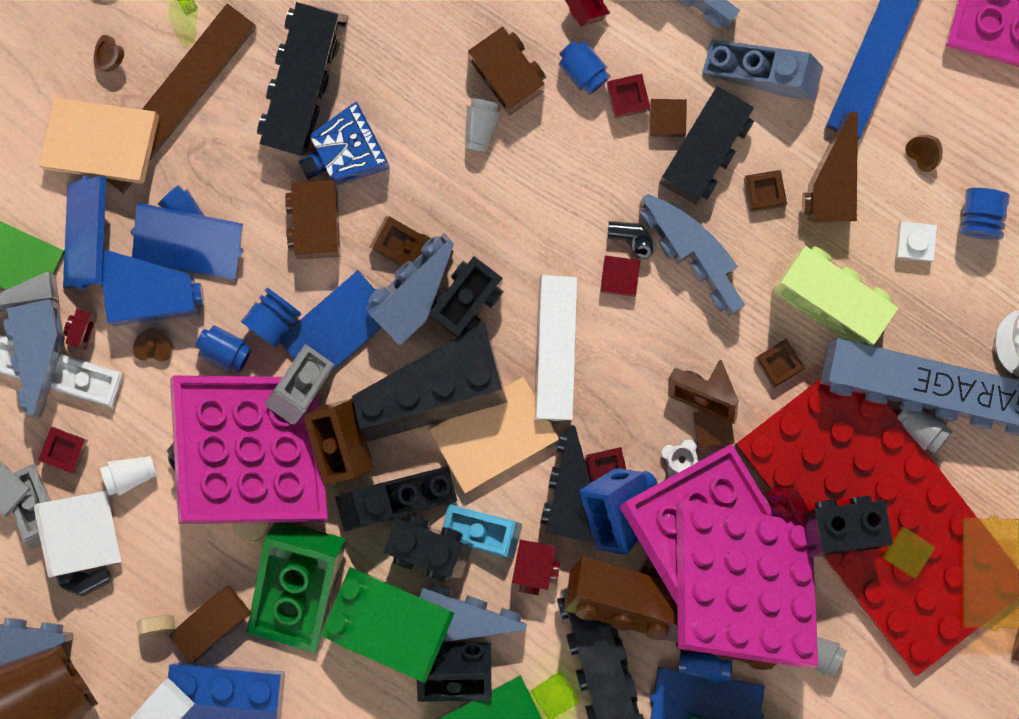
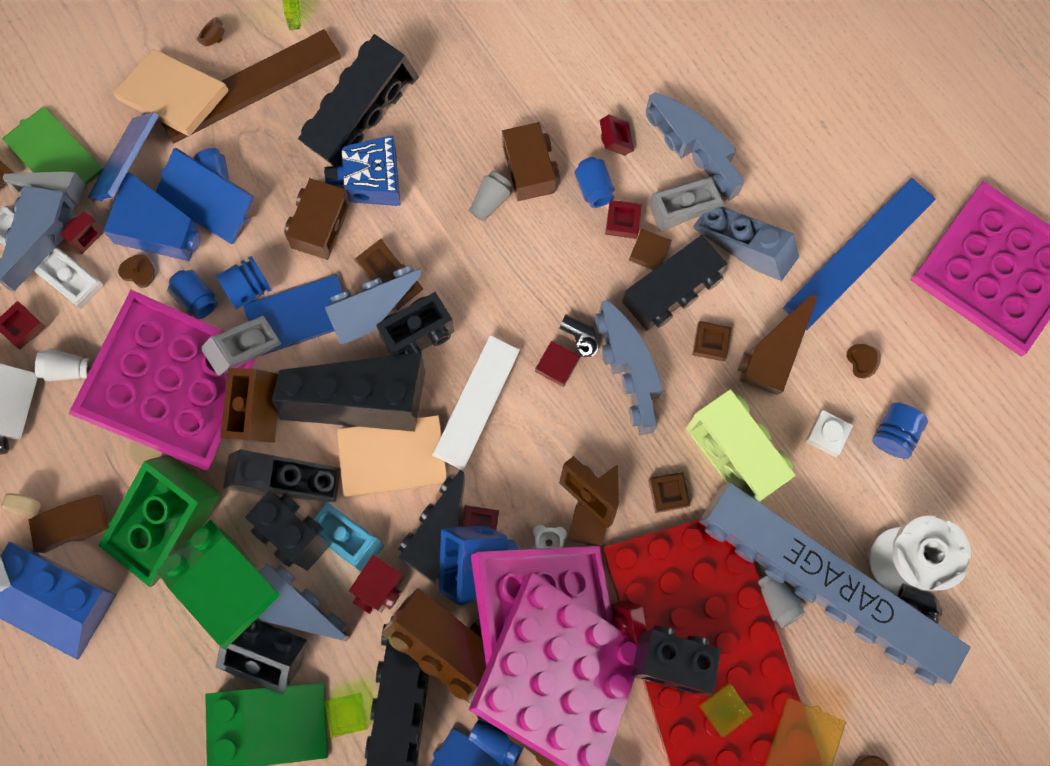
camera: 20 degrees right, 10 degrees down
(685, 52) = (684, 202): none -> light grey slope

